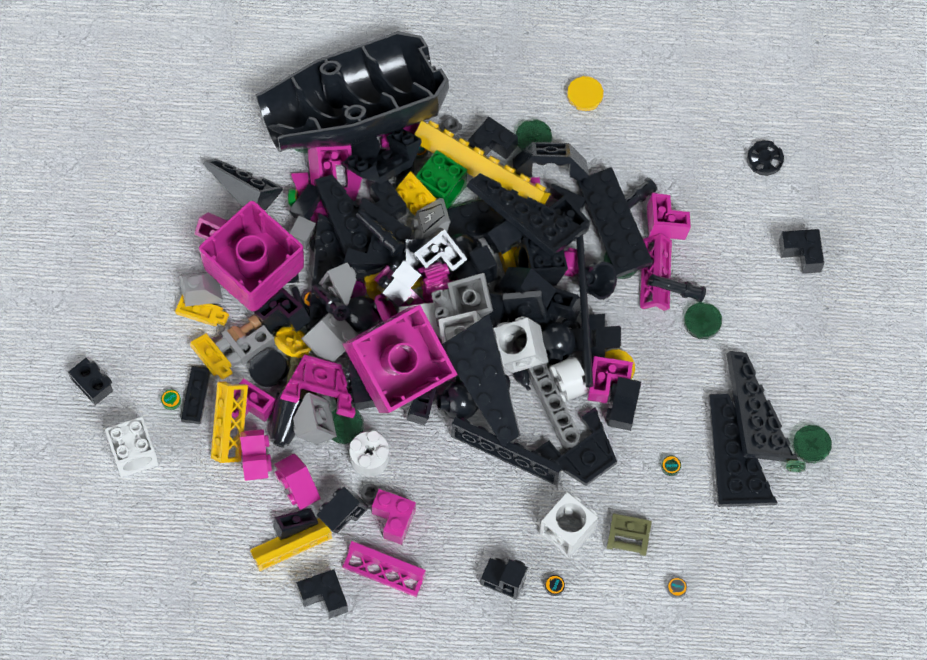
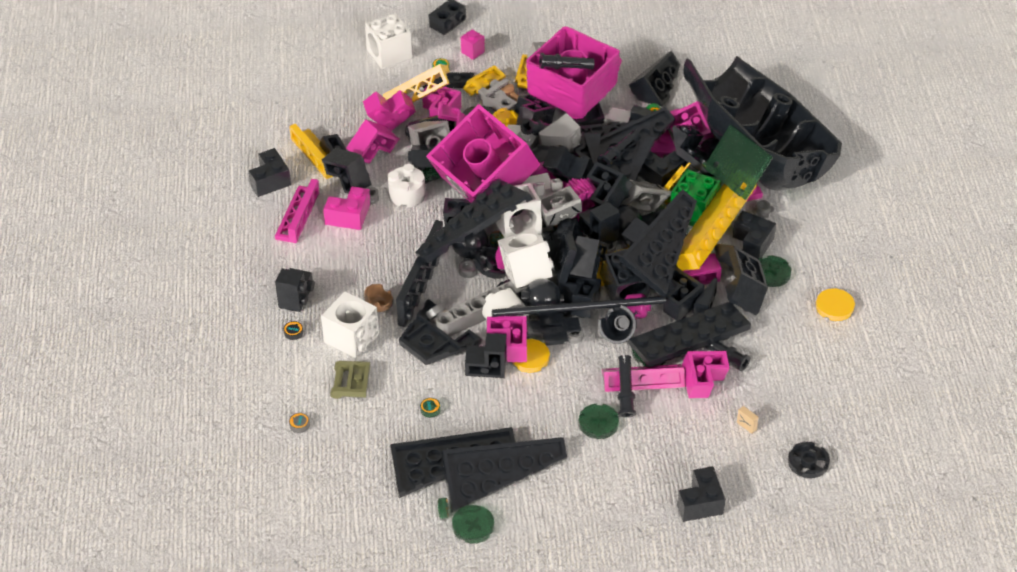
camera: 85 degrees right, 20 degrees down
(147, 360) = (472, 44): none -> dark pink brick
(265, 262) = (556, 61): none -> black pin
(339, 429) = (418, 155): none -> black brick
(431, 125) = (739, 162): none -> clear green window
(529, 497) = (378, 297): none -> medium nougat hair
(560, 442) = (435, 310): none -> flat silver tile
(720, 195) = (747, 419): none -> tan tile

